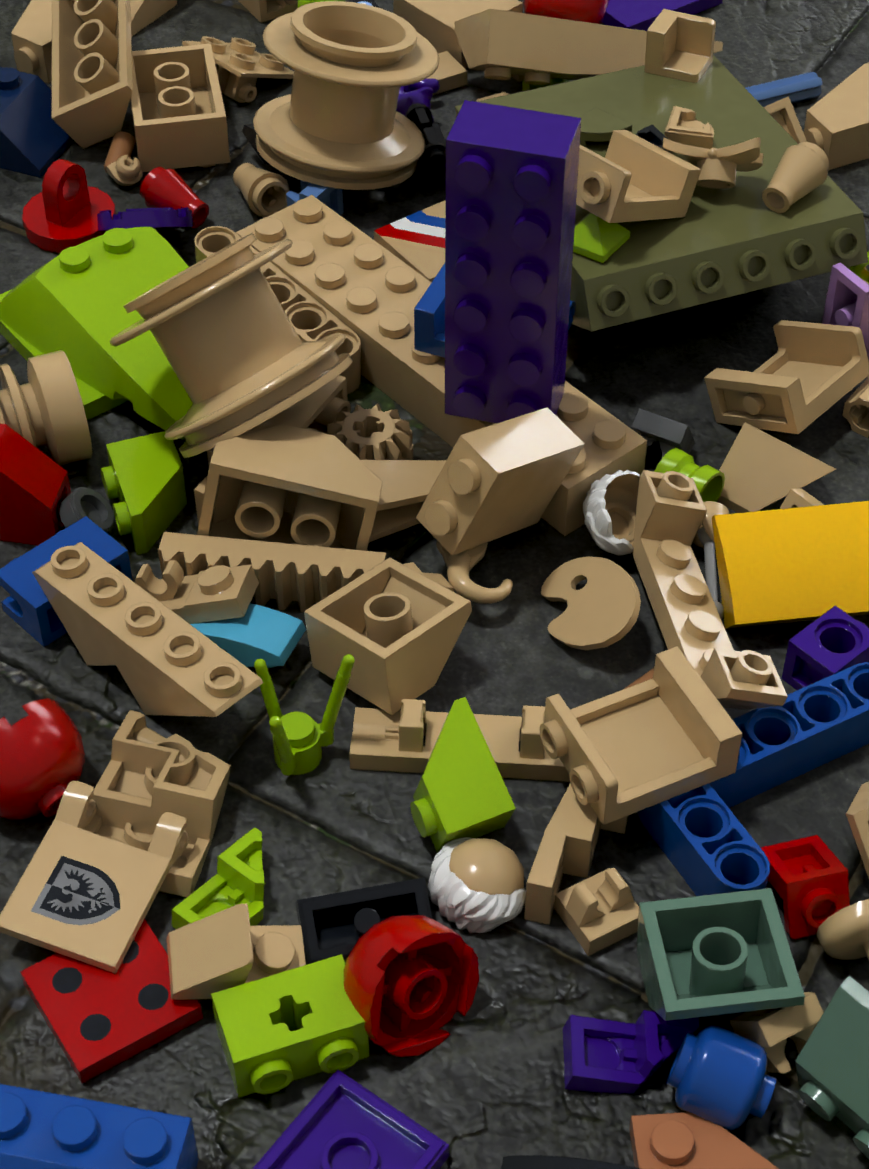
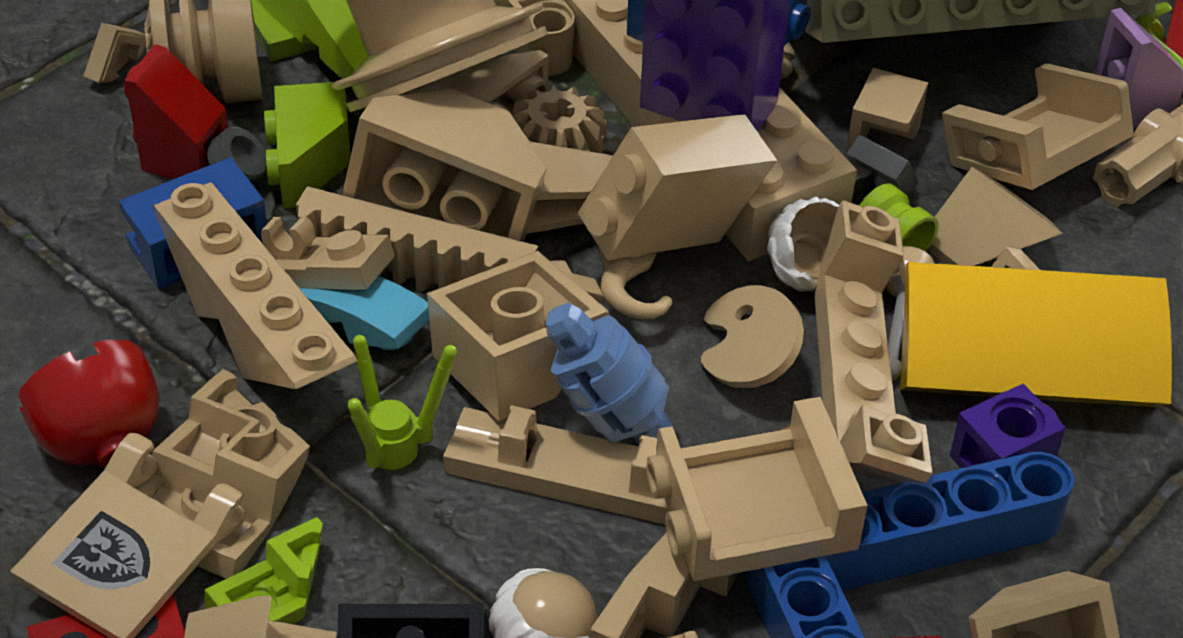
camera: 10 degrees right, 0 degrees up
(461, 784) = (549, 508): lime slope -> none
(483, 658) = (607, 375): none -> medium blue piece
(654, 377) = (889, 105): none -> tan panel

